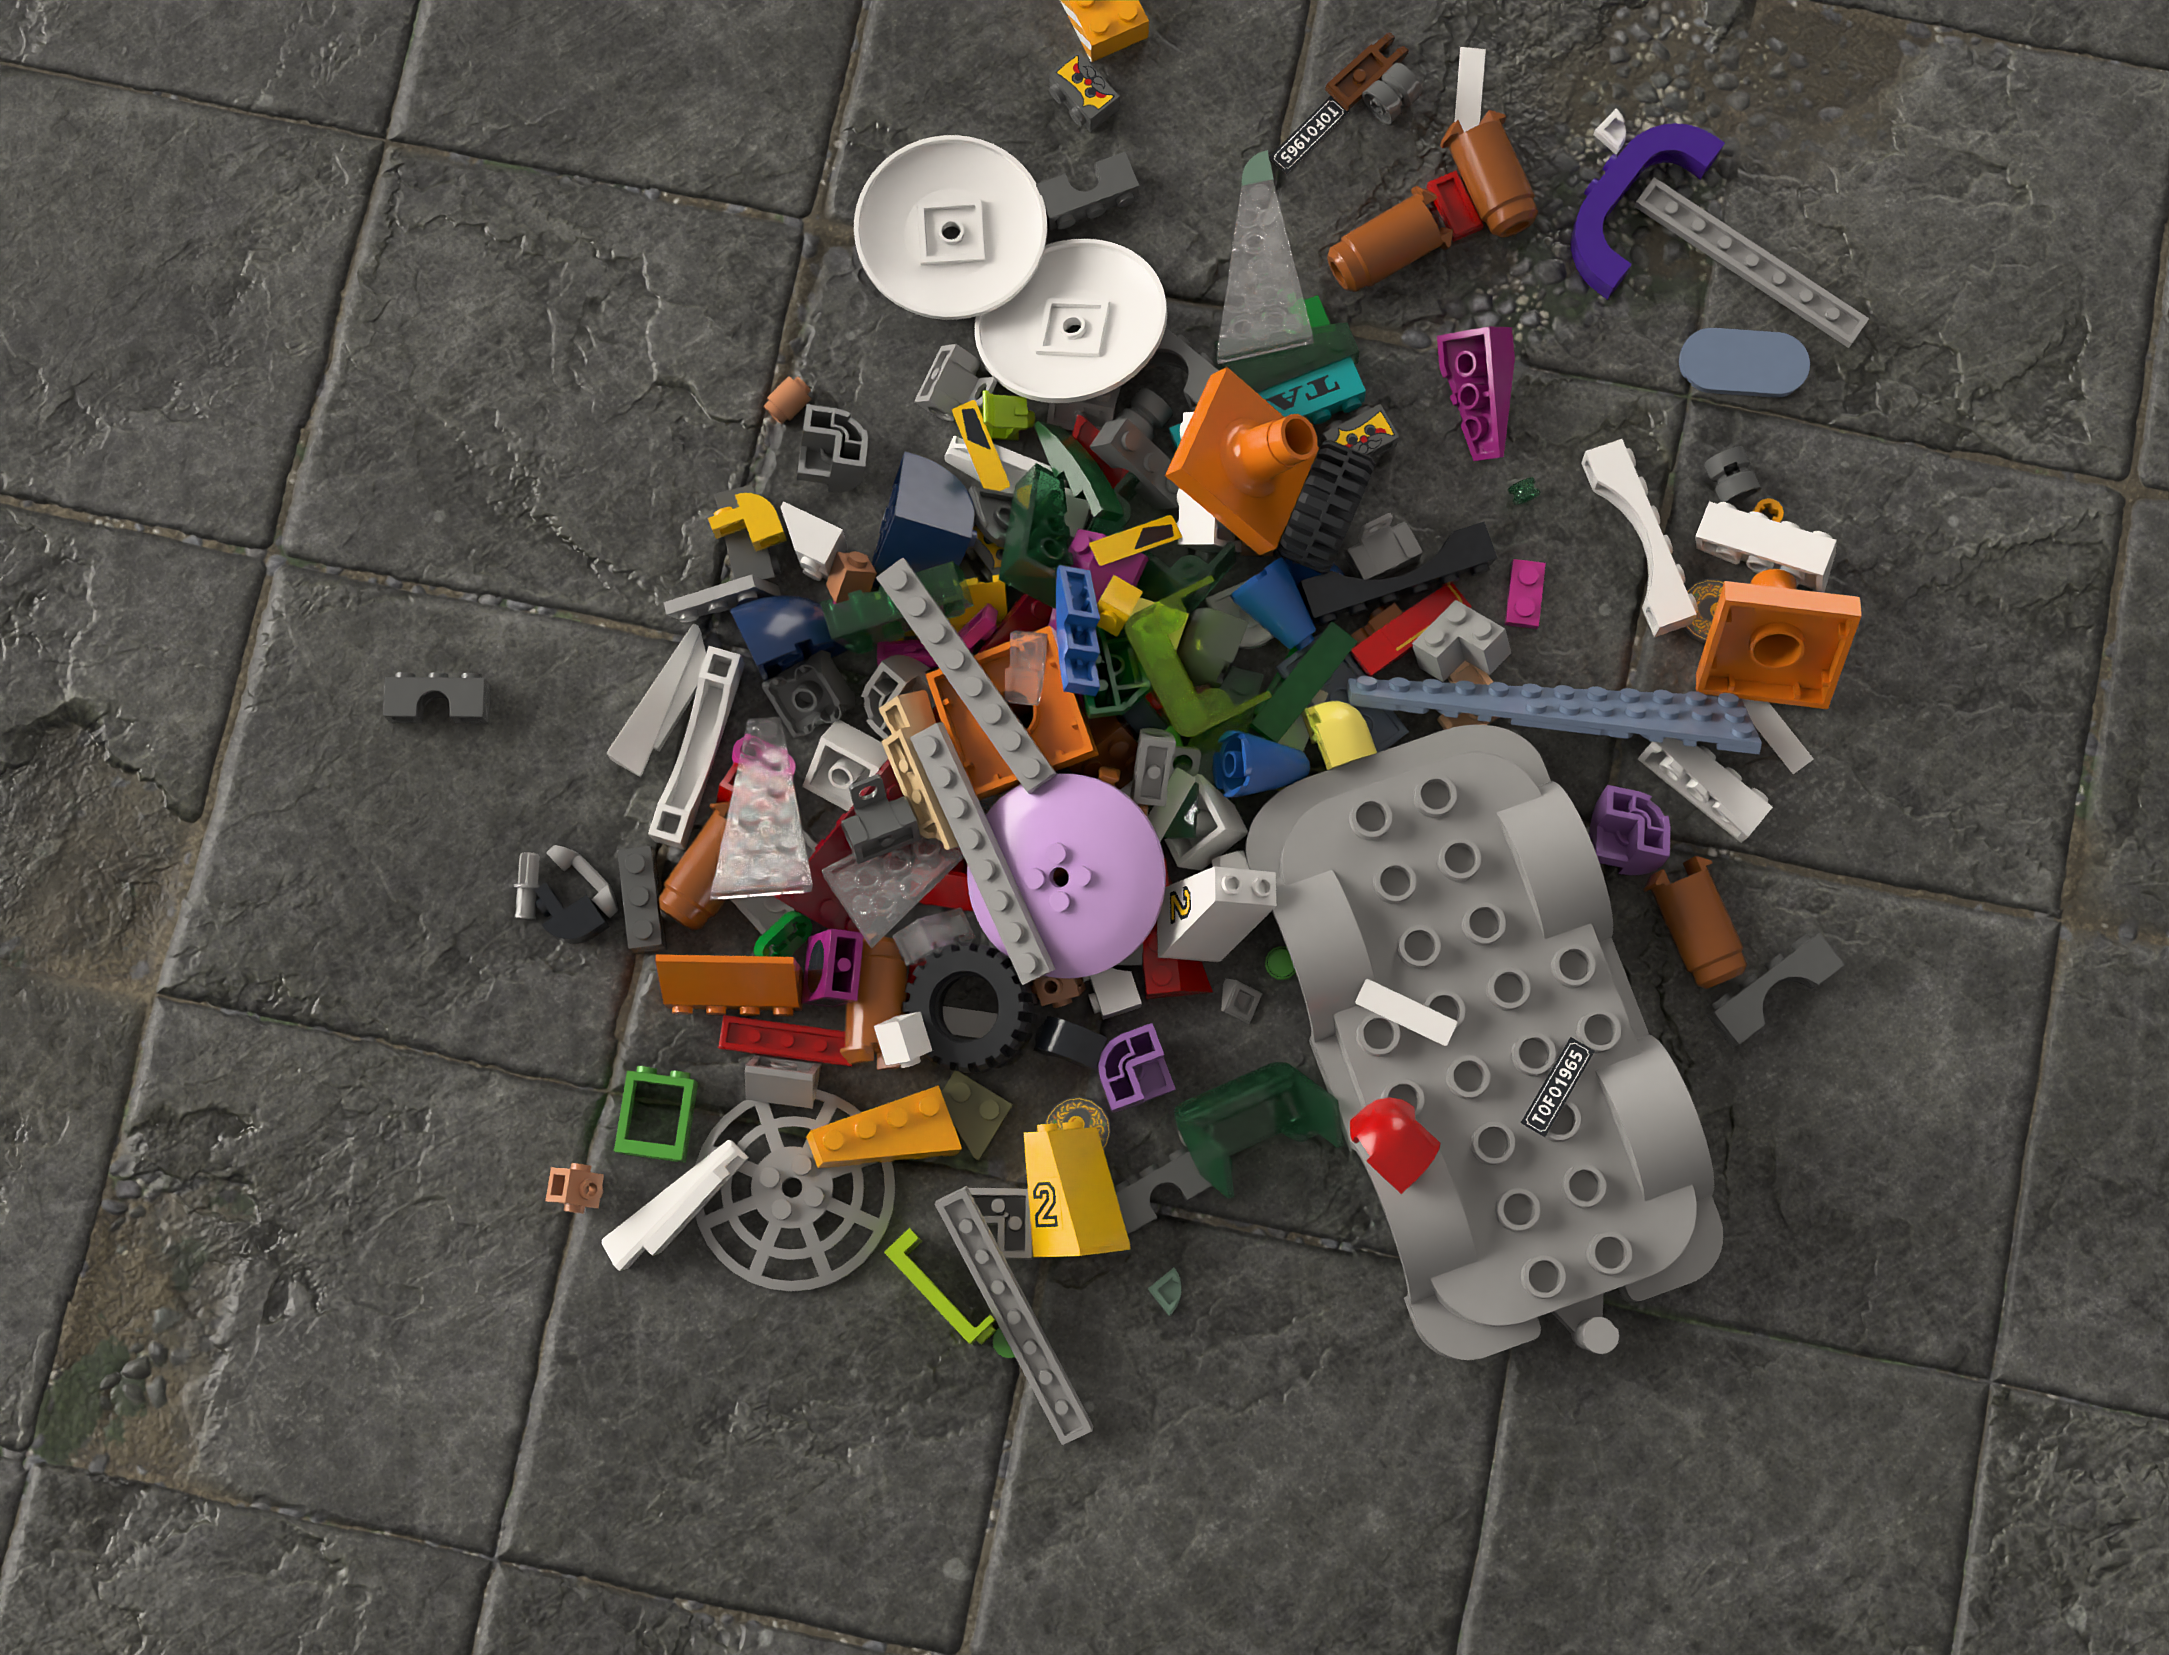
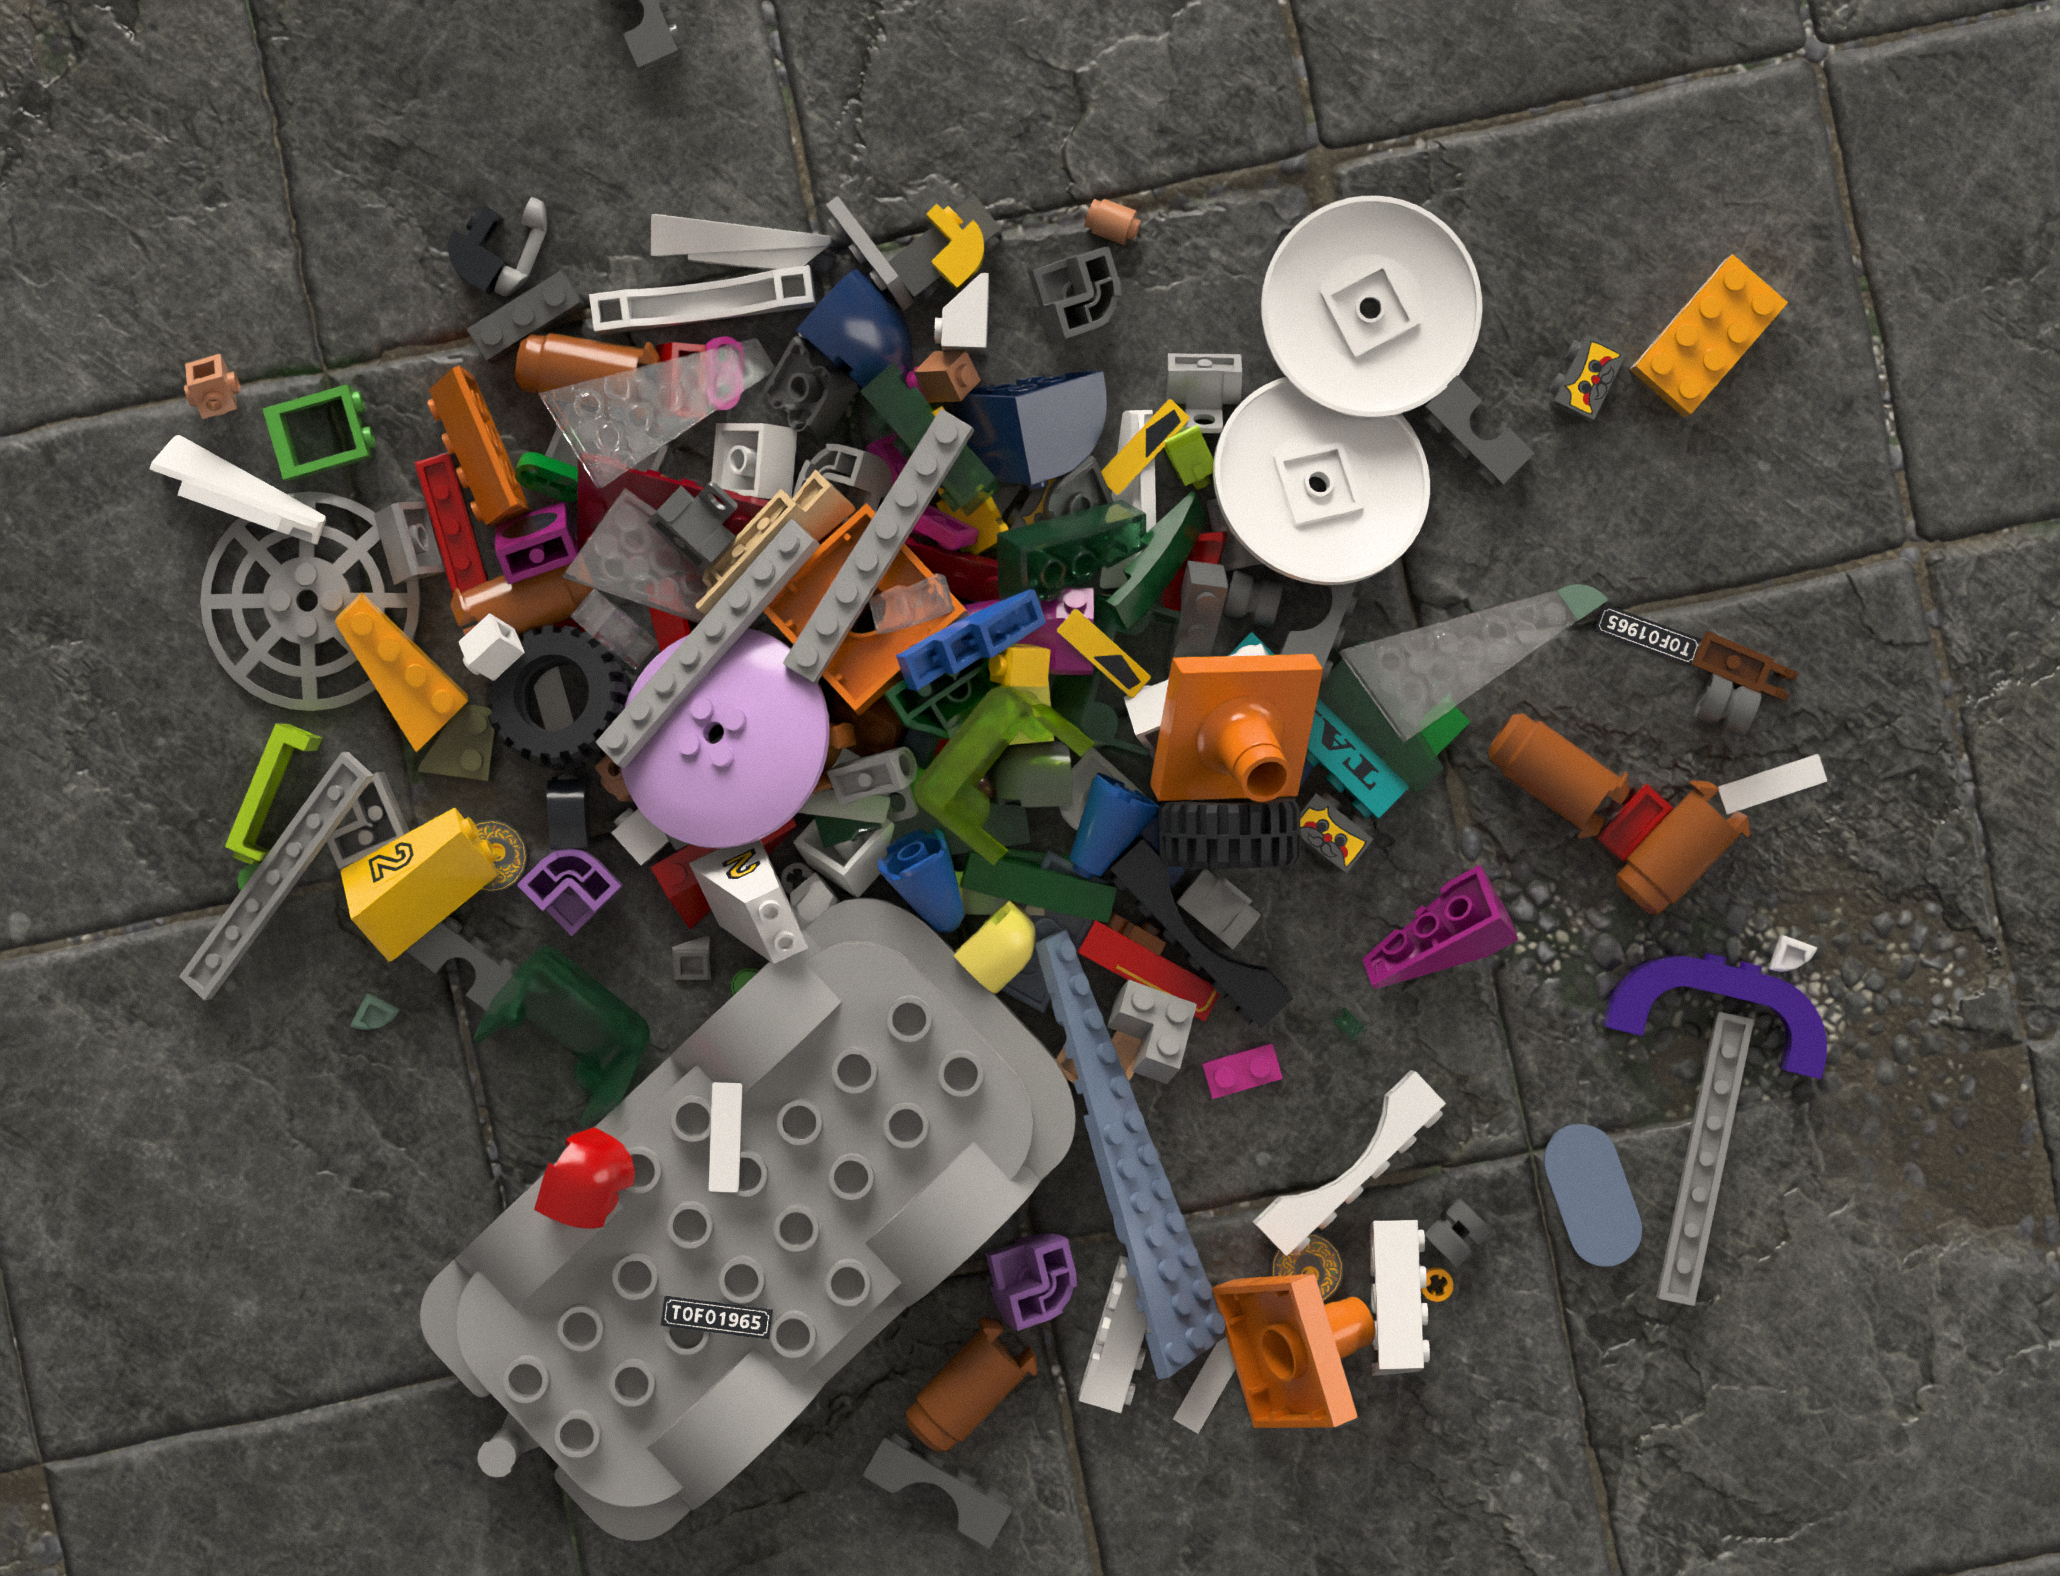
camera: 65 degrees right, 10 degrees up
(526, 886) = (490, 194): light grey axle -> none

